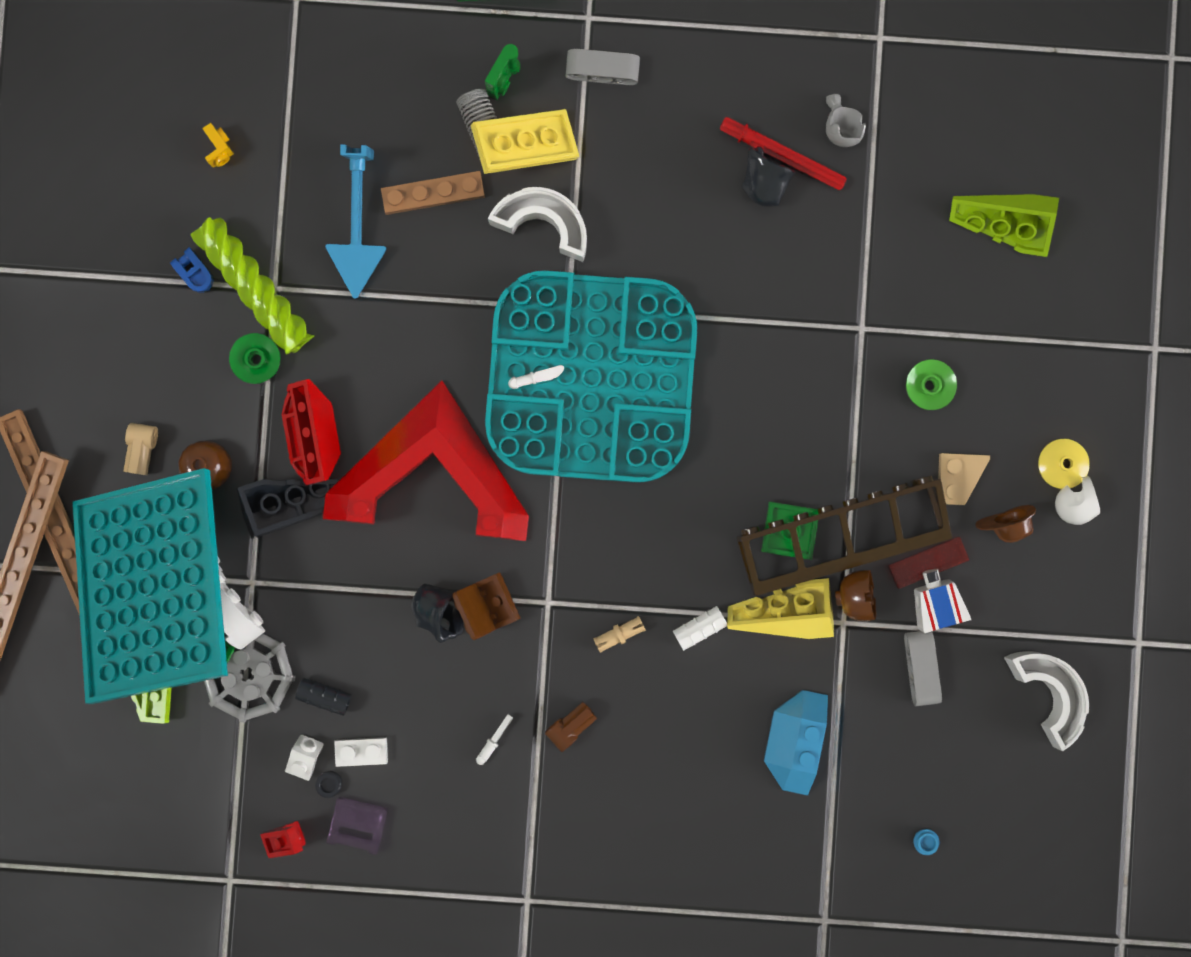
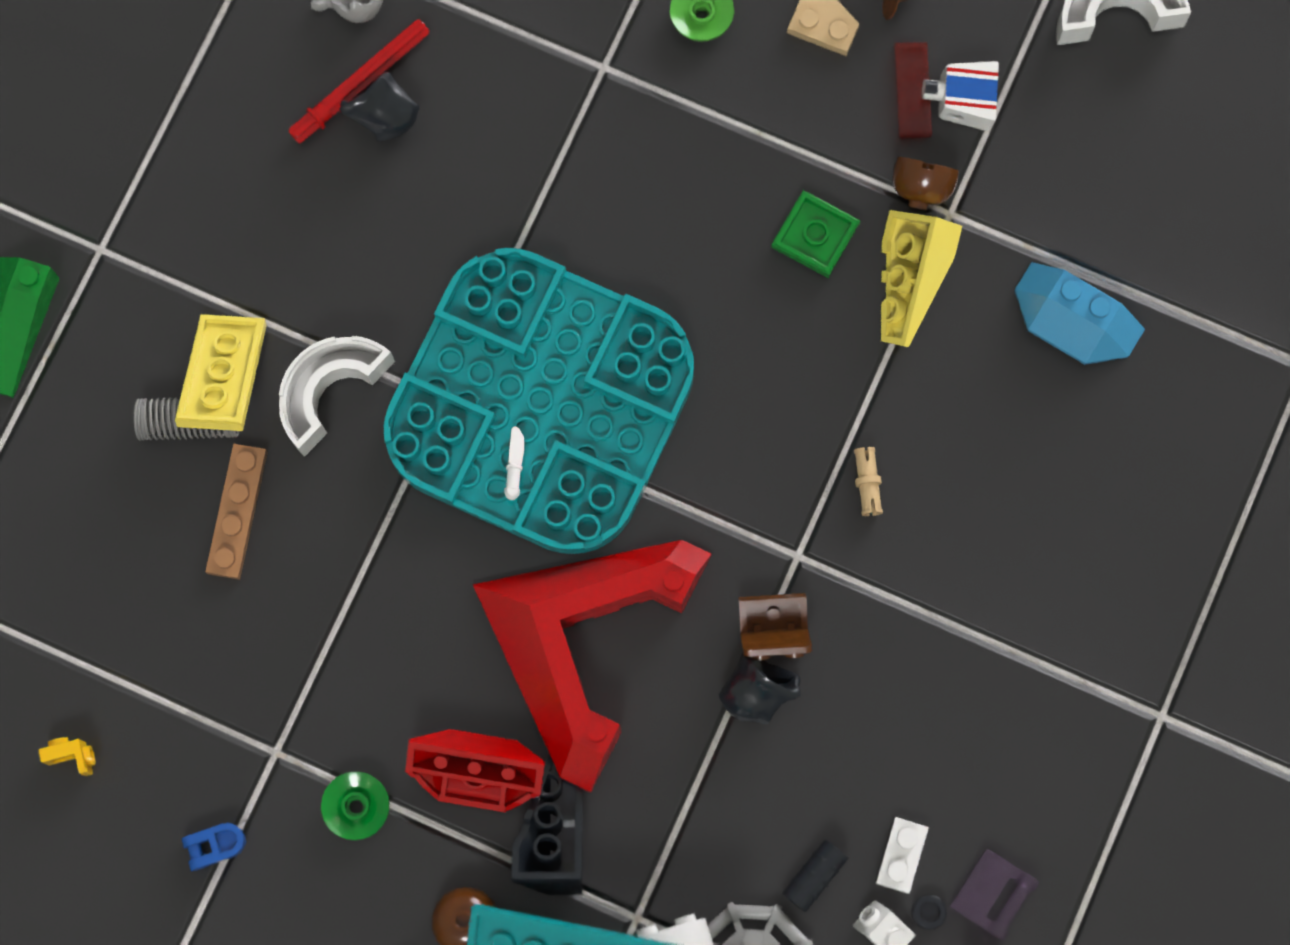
camera: 60 degrees left, 10 degrees down
(253, 289) = (270, 772): lime piece -> none
(355, 260) = (282, 637): dark azure piece -> none
(492, 743) = (949, 688): white piece -> none
(504, 67) = (127, 368): green plate -> none
(566, 730) = (964, 589): reddish brown piece -> none
(602, 67) = (168, 252): light grey beam -> none
(700, 628) = (895, 381): white axle -> none
(852, 559) = (876, 170): dark brown window -> none
(923, 668) = (1037, 139): light grey beam -> none
(926, 841) = (1248, 210): dark azure plate -> none

